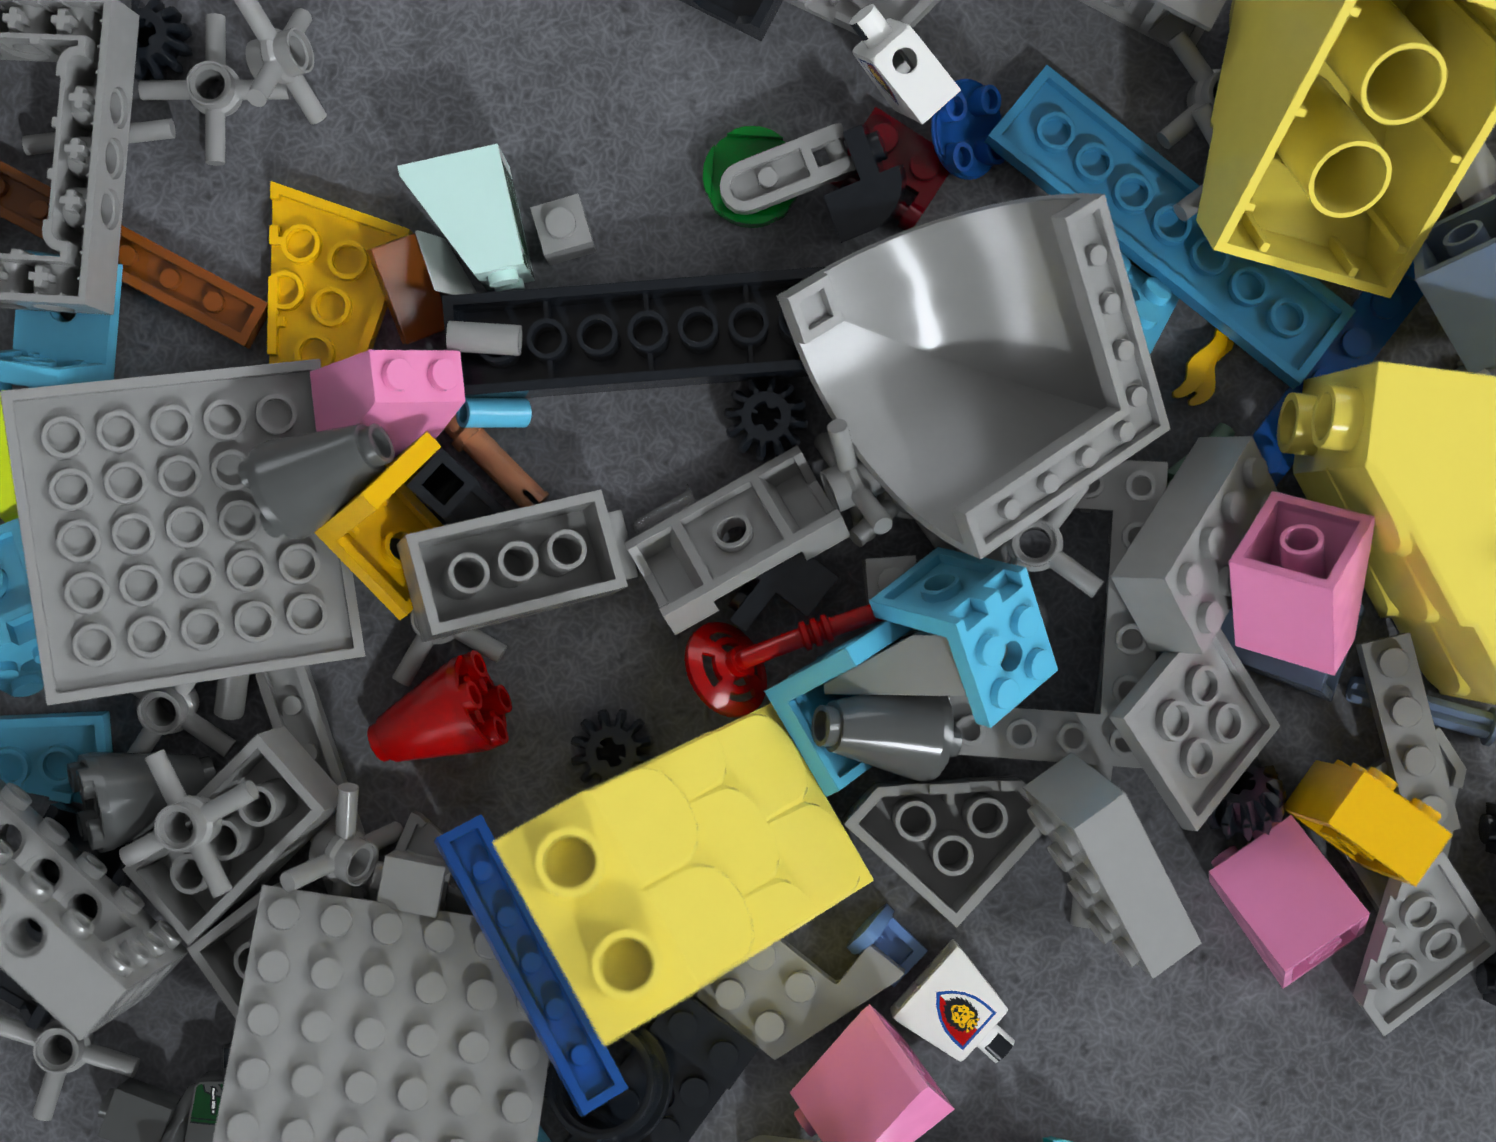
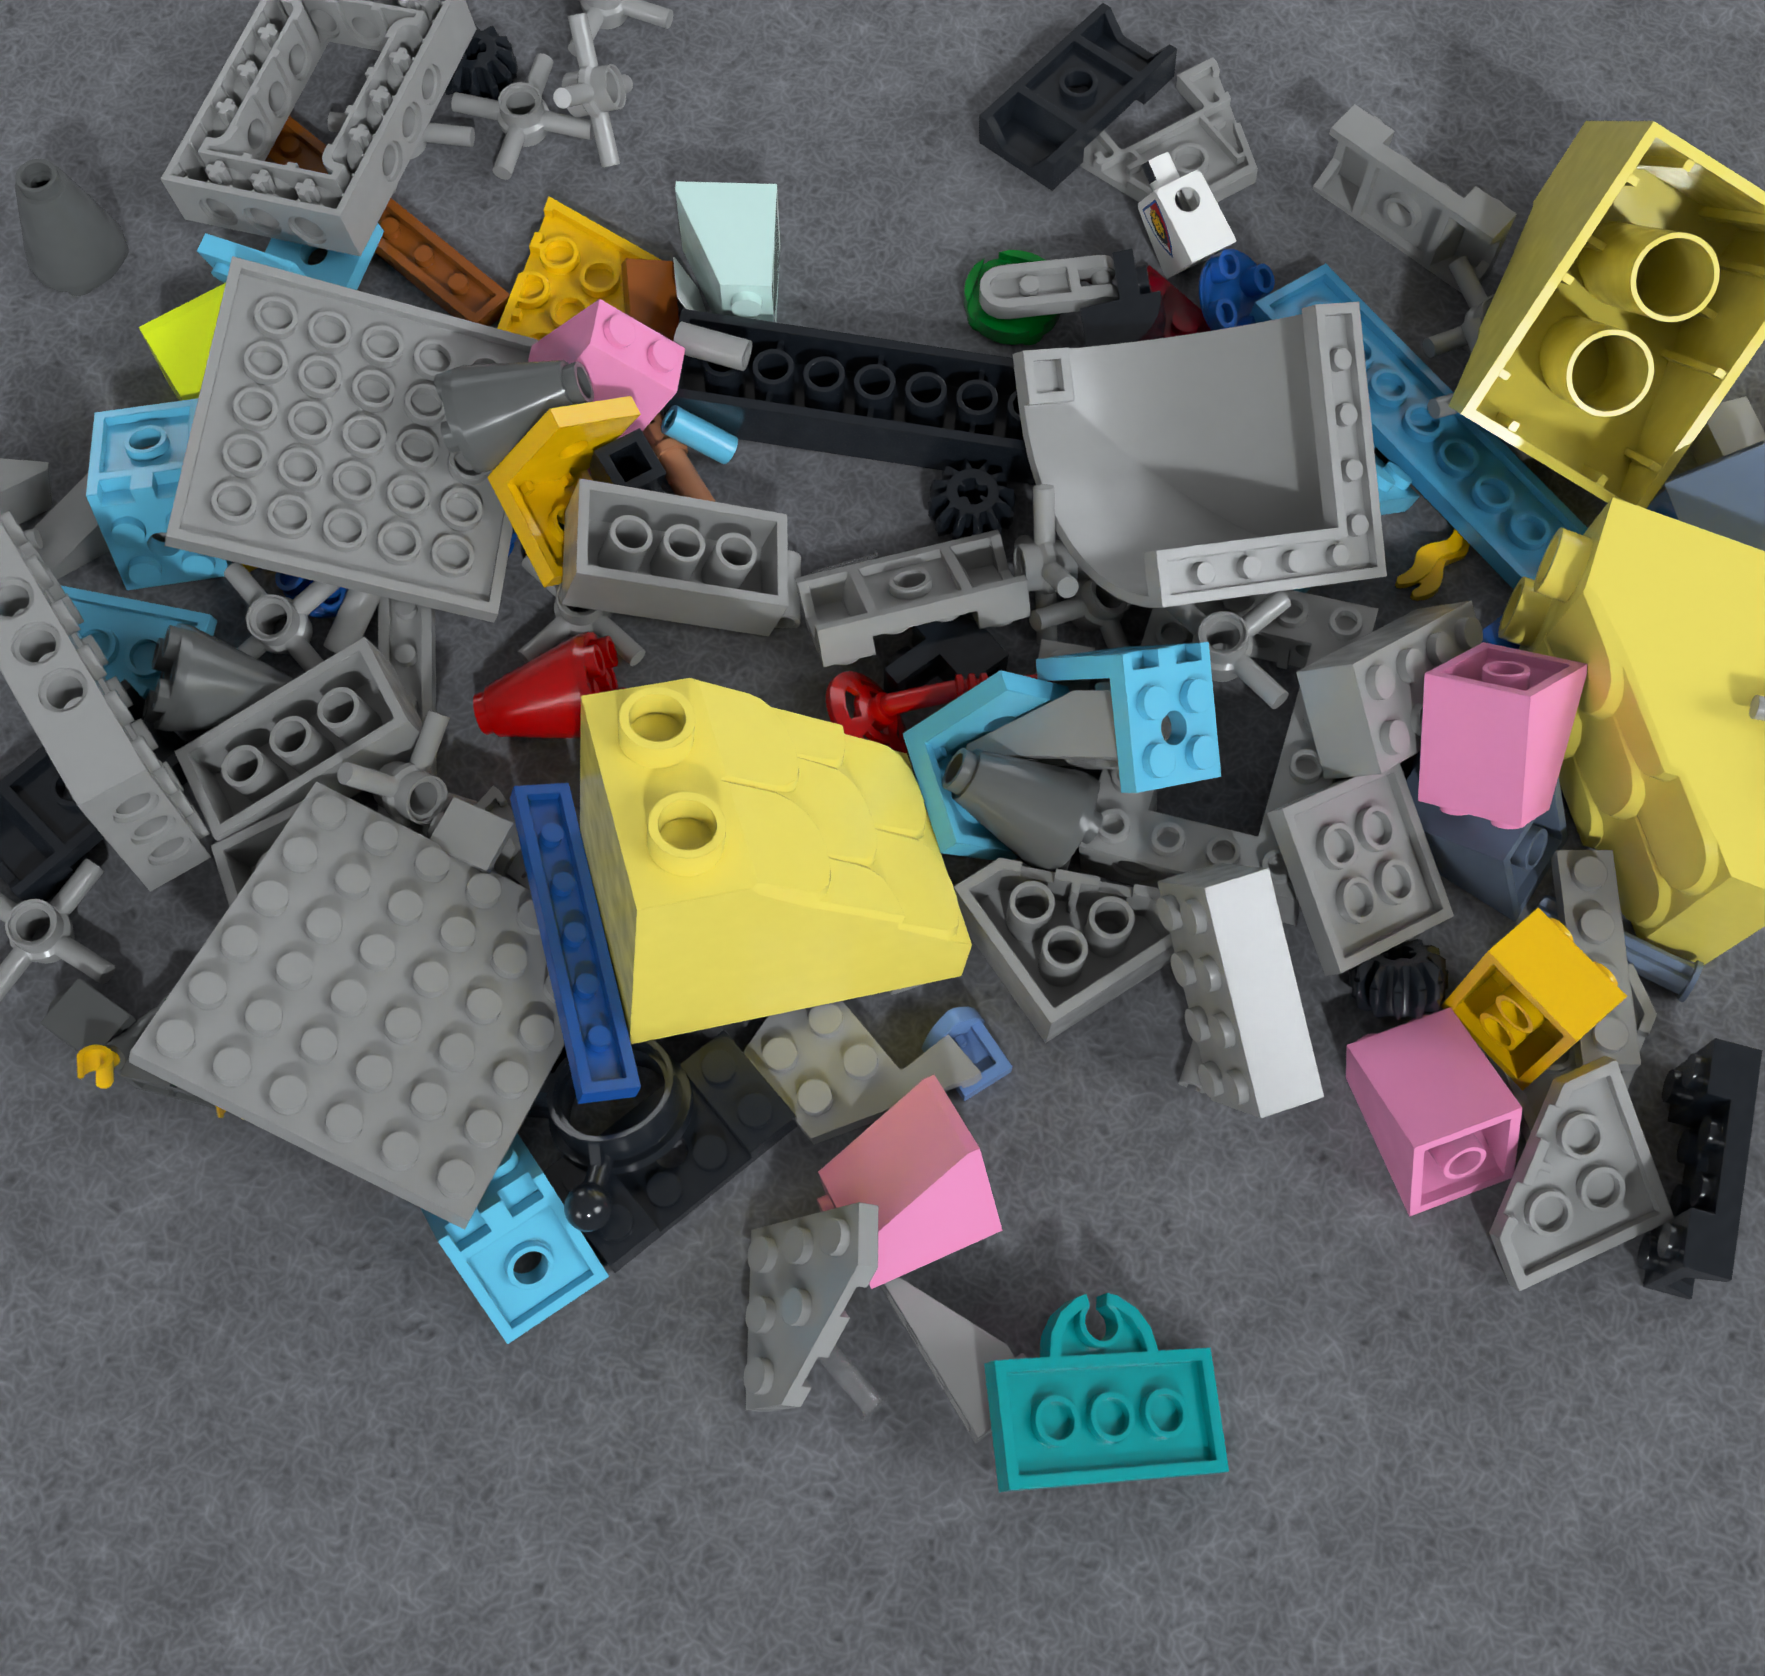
camera: 15 degrees right, 20 degrees down
(206, 818) = (271, 716): light grey bar -> none
(563, 229) = (817, 293): light grey brick -> none
(954, 1007) = (1031, 1132): white torso -> none

